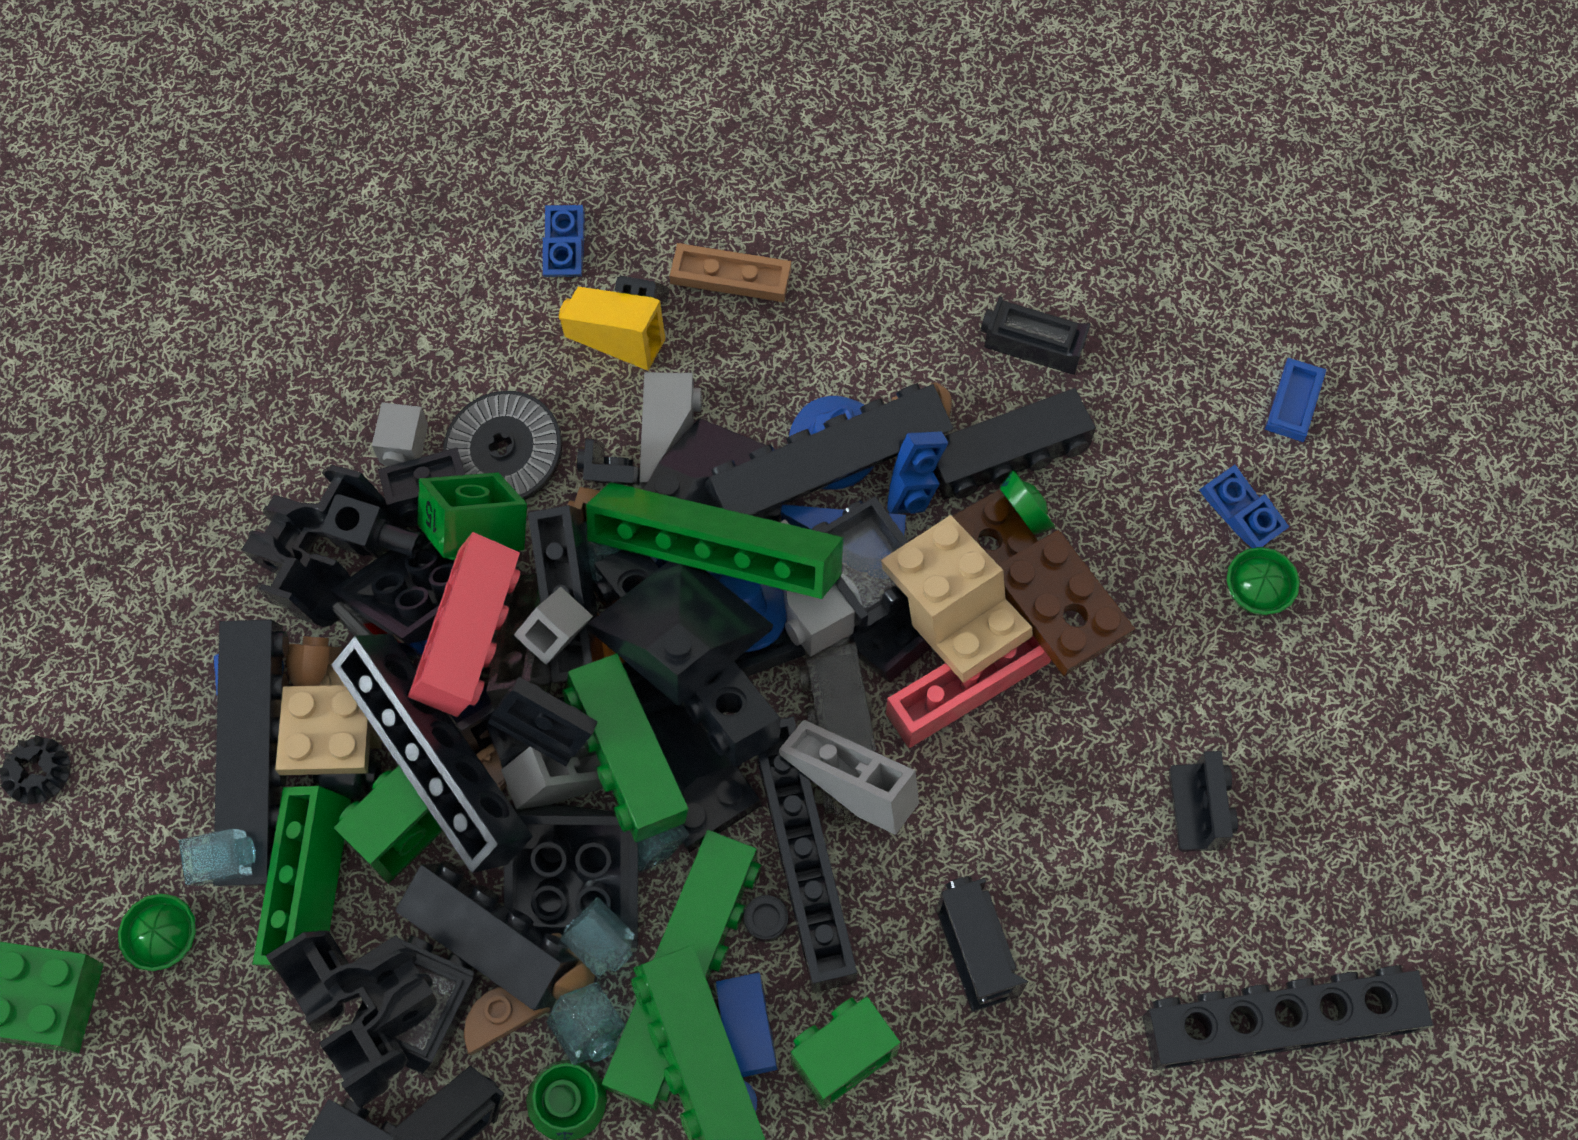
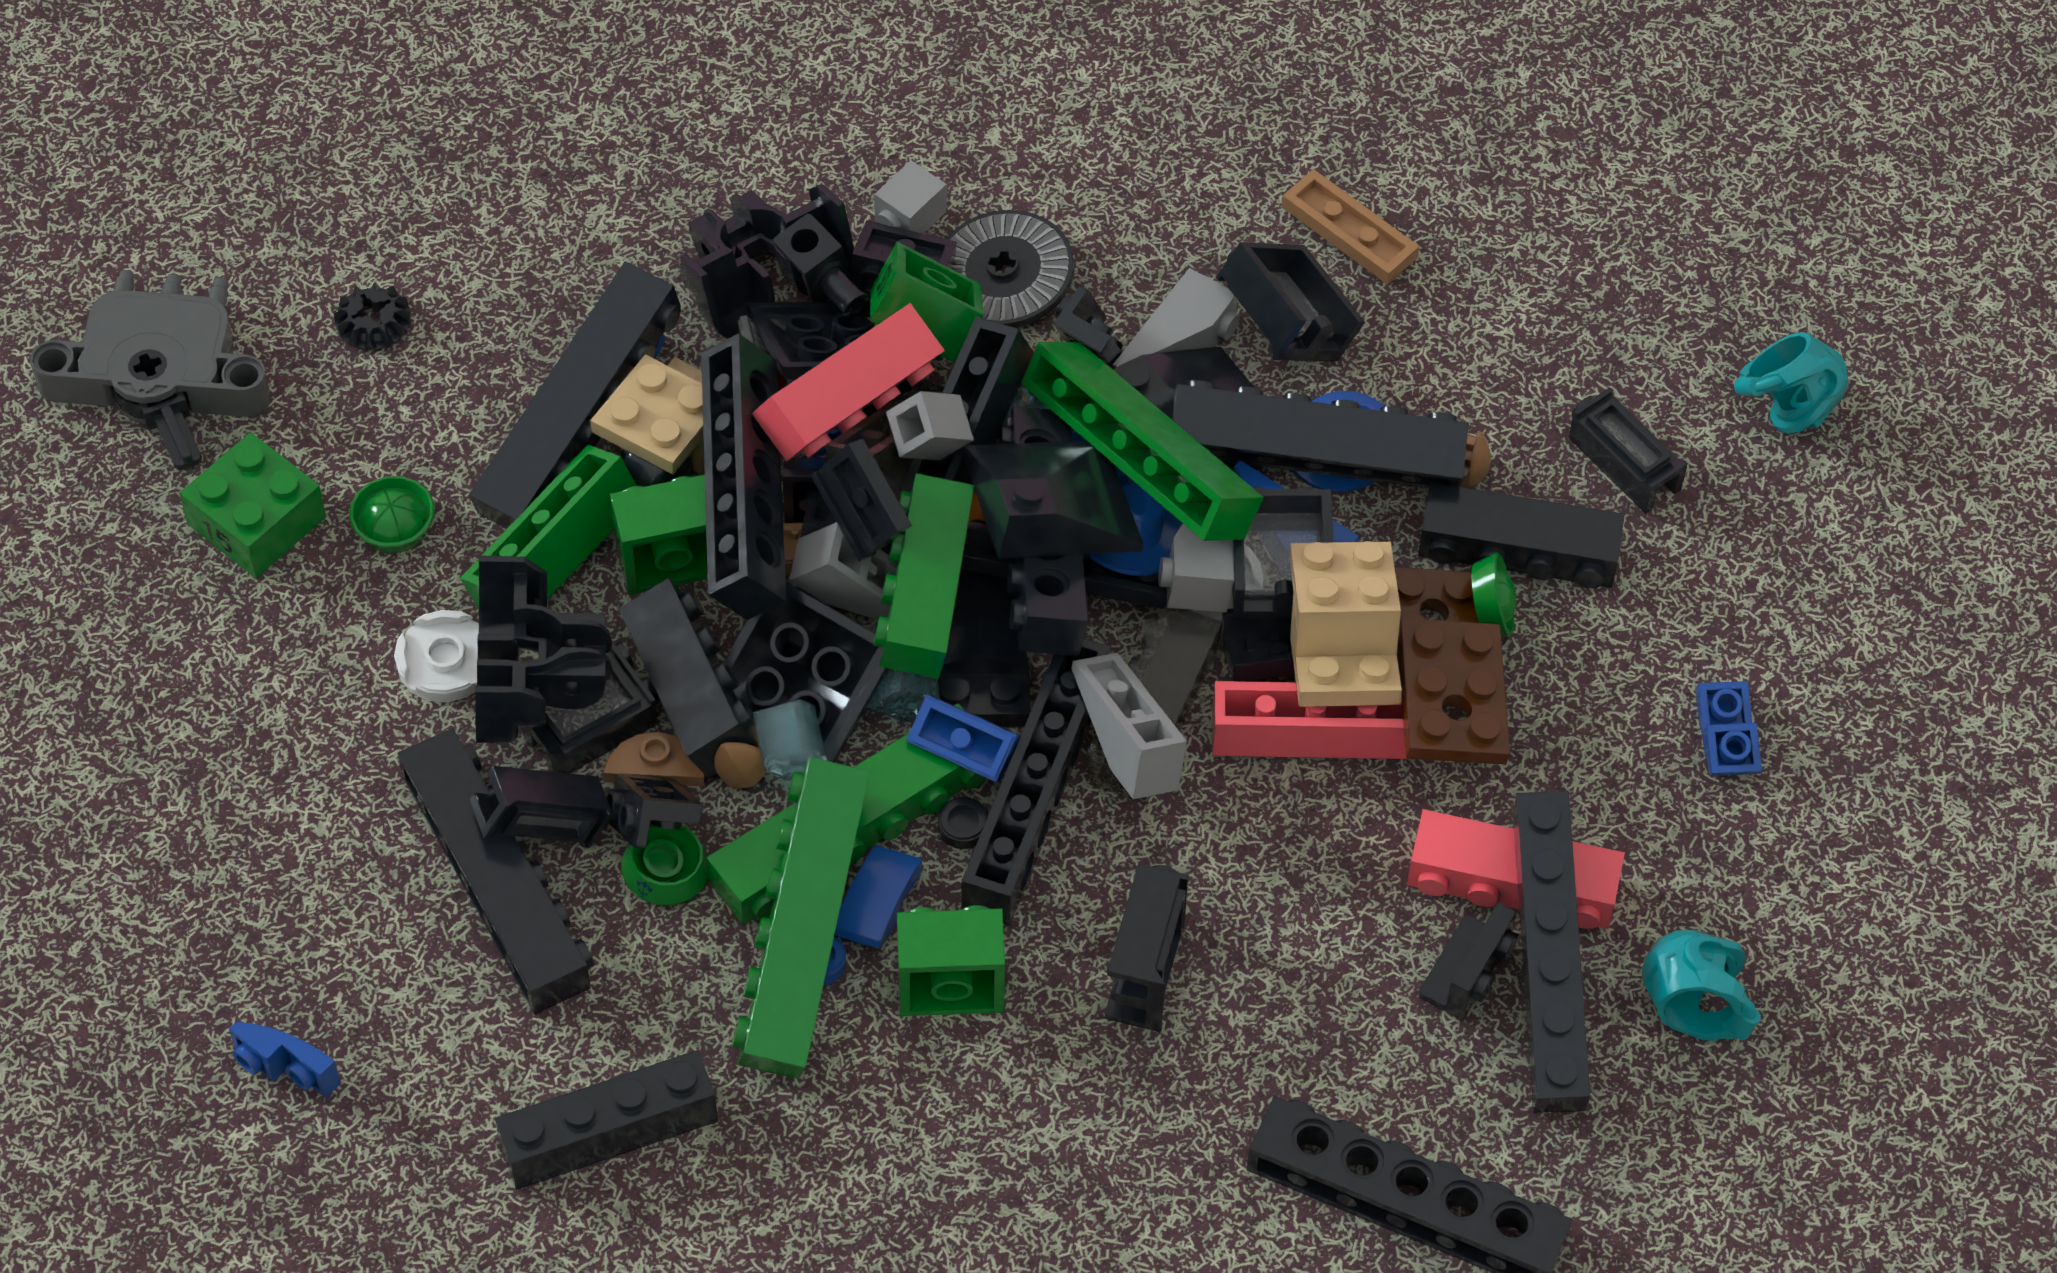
camera: 30 degrees right, 10 degrees down
(216, 856) = (488, 465): clear light blue brick -> none
(289, 1036) = (447, 671): none -> white tile
(310, 660) = (683, 350): medium nougat plate -> none
(527, 1064) = (646, 798): none -> black bracket
(563, 241) = (1201, 110): blue slope -> none
(586, 1024) = (730, 801): clear light blue brick -> none
(615, 324) = (1193, 211): yellow slope -> none
(642, 288) = (1243, 189): black tile -> none
(733, 355) = (1291, 301): none -> black window
(733, 857) = (963, 738): none -> blue slope
(913, 475) = (1397, 500): blue slope -> none
(1118, 219) = (1802, 378): none -> teal helmet
(1182, 709) = (1480, 864): none -> coral brick
(1262, 581) = (1692, 804): green hat -> none
(1265, 768) = (1551, 952): none -> black brick
(1295, 399) = (1867, 660): blue tile -> none
(1367, 726) = (1695, 963): none -> teal helmet

